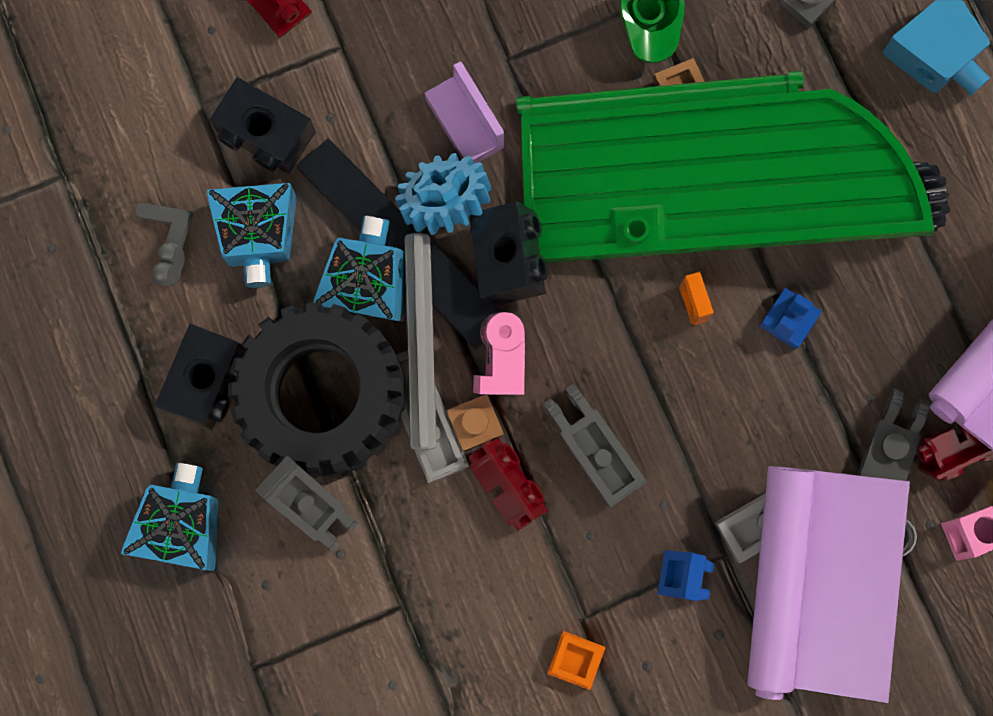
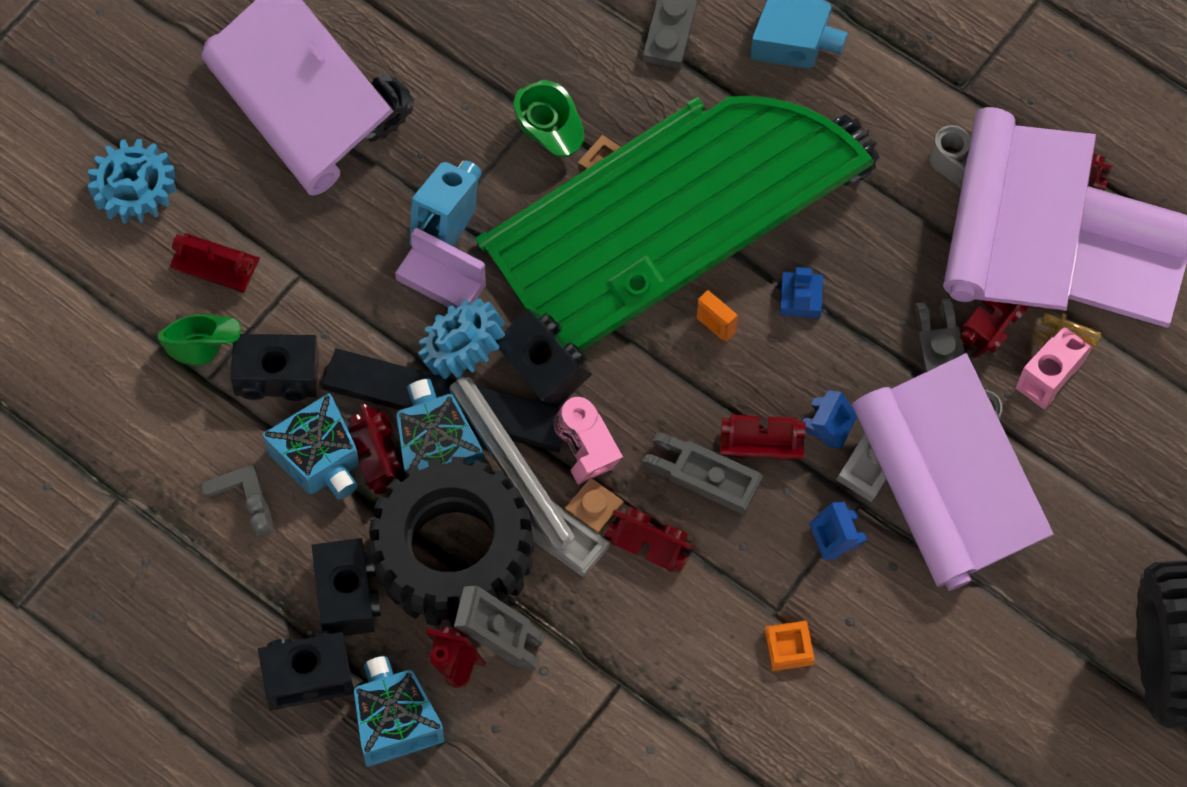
camera: 30 degrees left, 15 degrees down
(97, 430) = (289, 688): none -> black brick
(207, 61) = (198, 337): none -> green piece
(247, 507) = (453, 655): none -> dark red hinge
(314, 240) = (373, 434): none -> dark red hinge
(505, 50) = (447, 194): none -> dark azure torso
(677, 454) = (780, 440): none -> dark red hinge
(746, 462) = (832, 419): none -> blue tile

